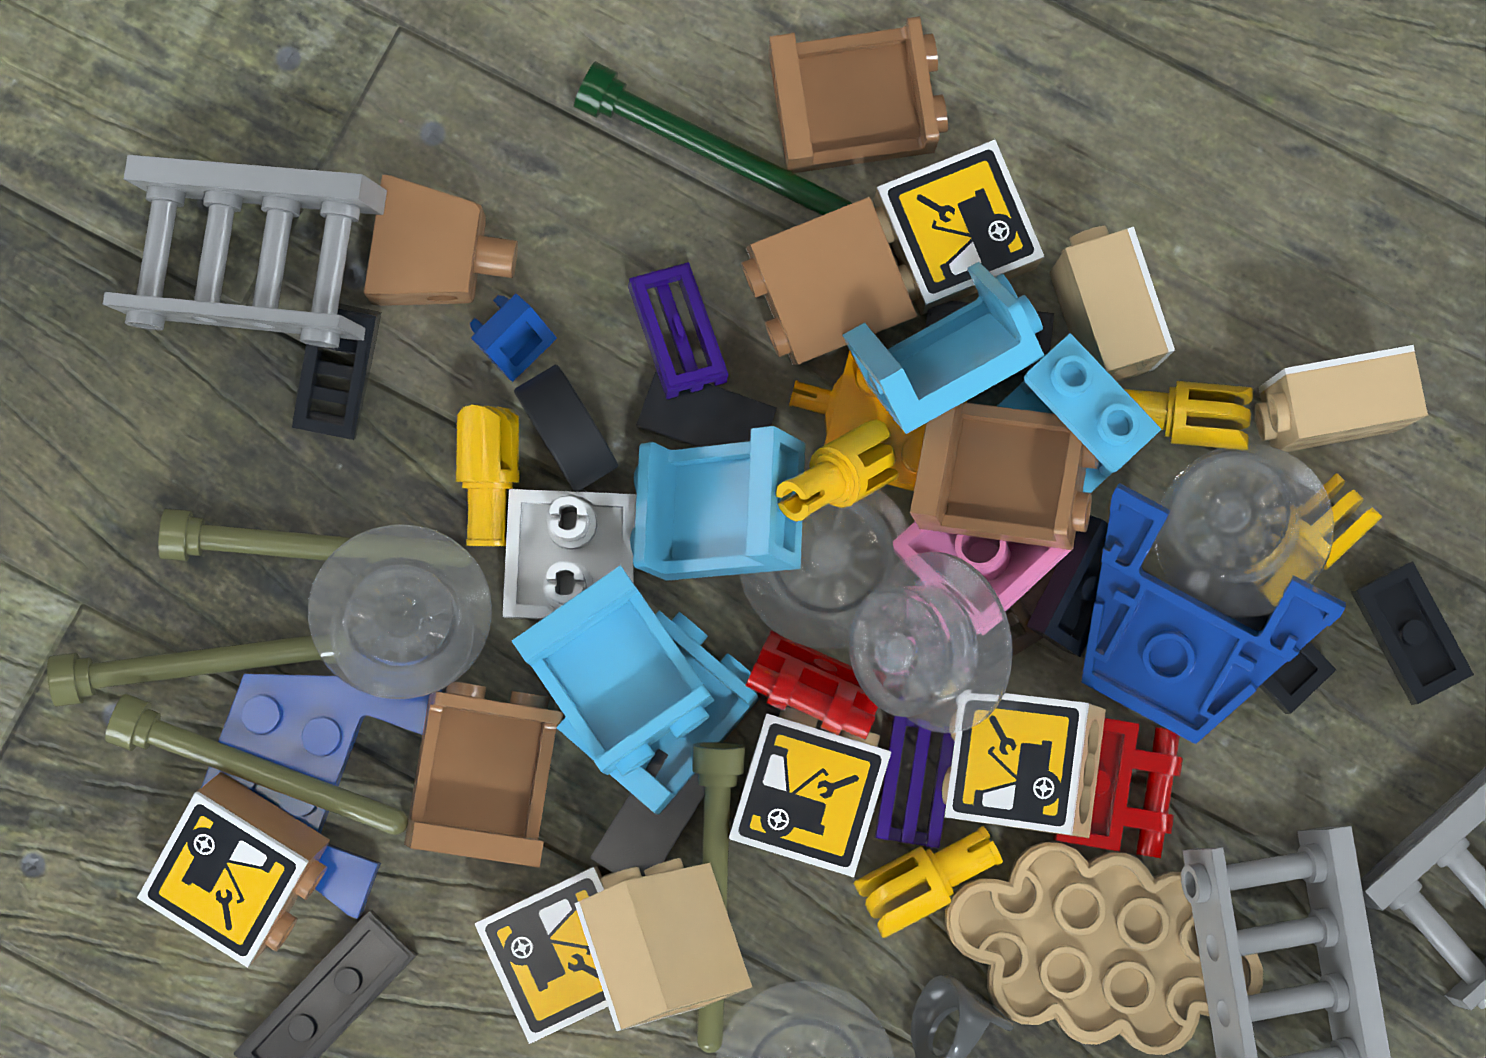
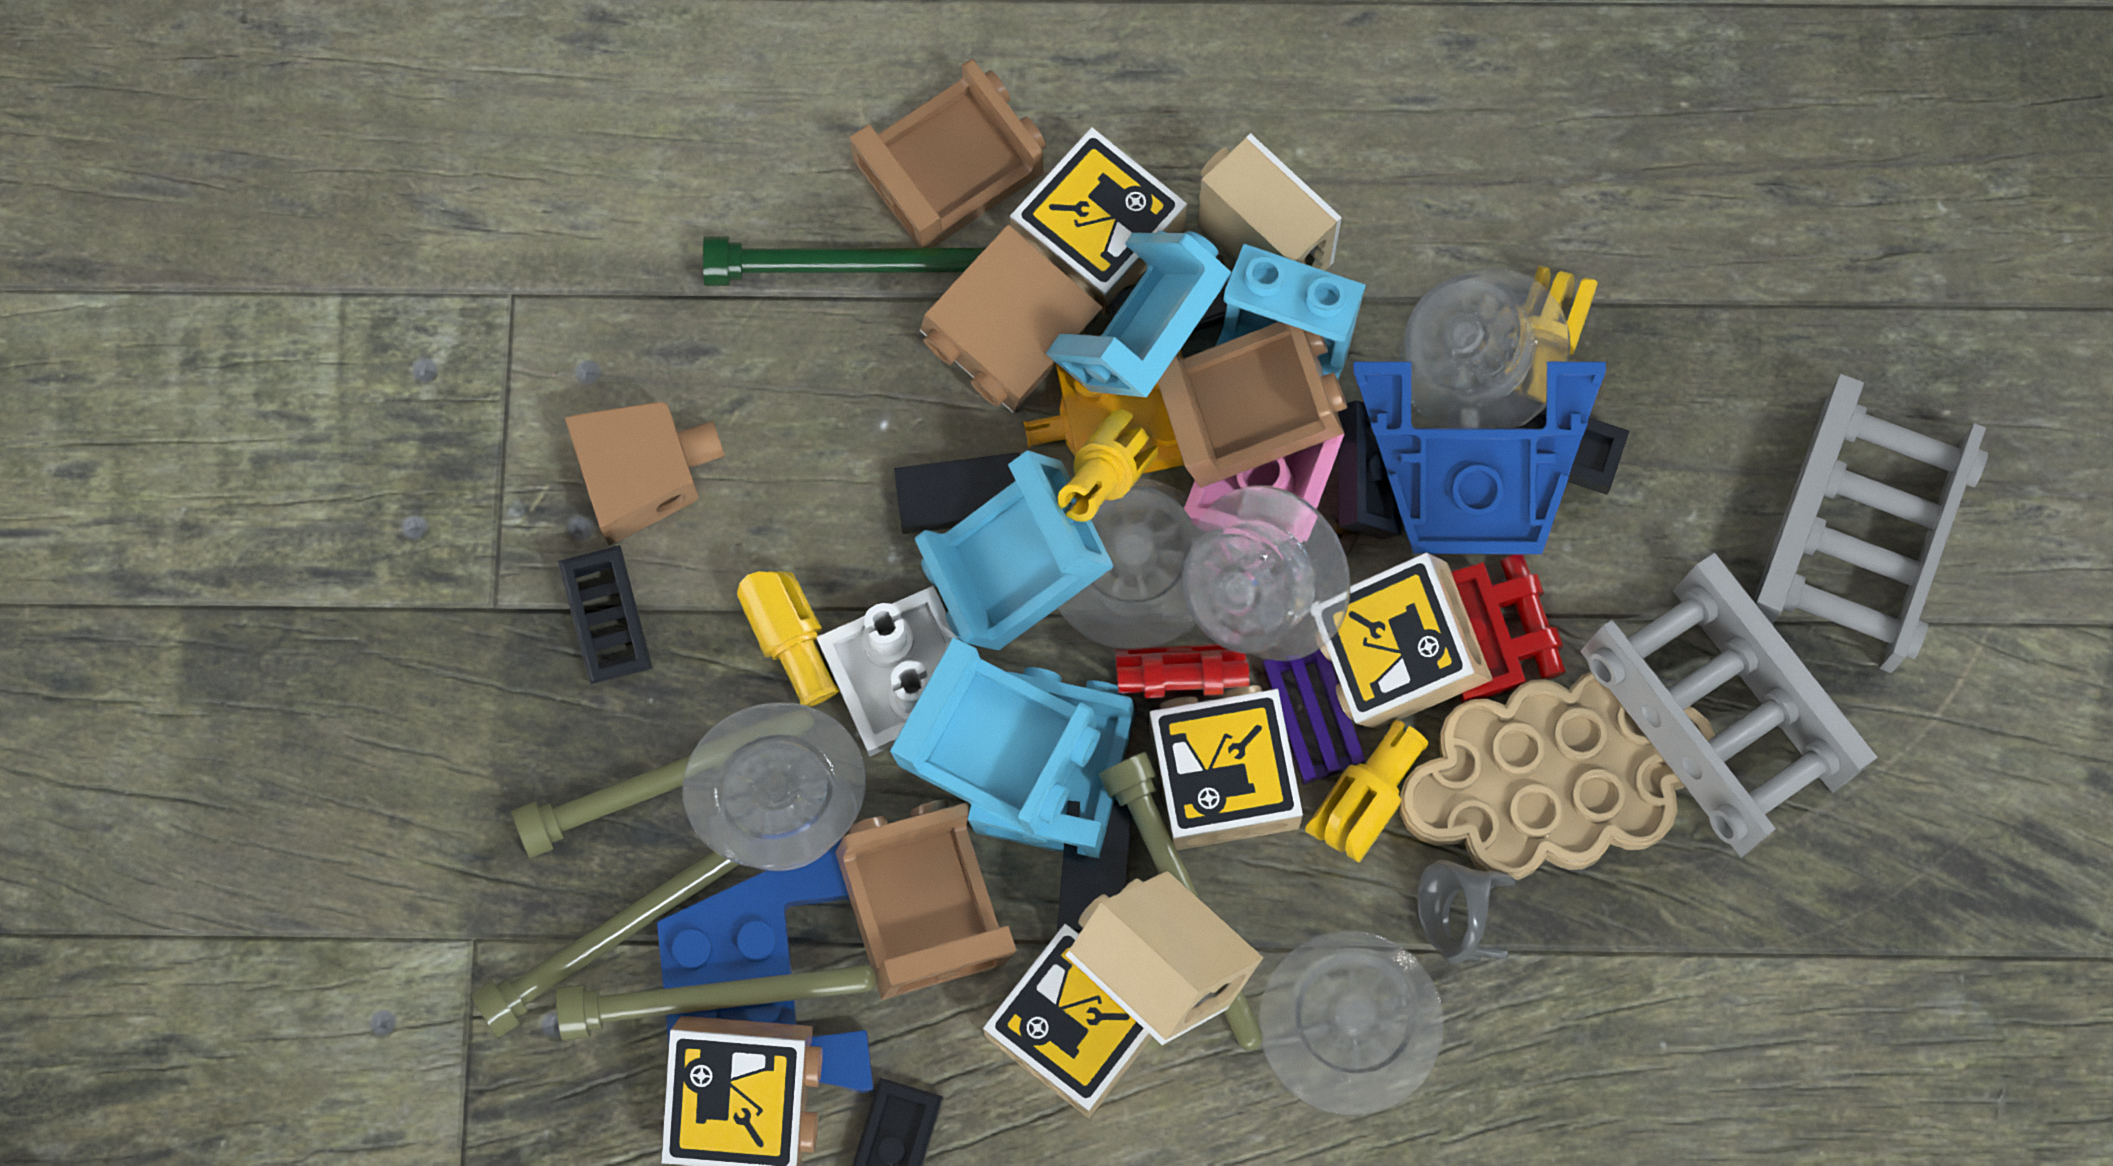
camera: 20 degrees left, 10 degrees down
(224, 190) = (427, 501): light grey fence -> none
(512, 336) = (751, 504): blue tile -> none
(566, 427) = (841, 555): black tyre -> none
(692, 377) = (928, 460): dark purple tile -> none
(1200, 413) = (1398, 272): yellow arm -> none
(1341, 400) = (1508, 198): tan piece -> none
(1412, 633) = (1678, 369): black plate -> none

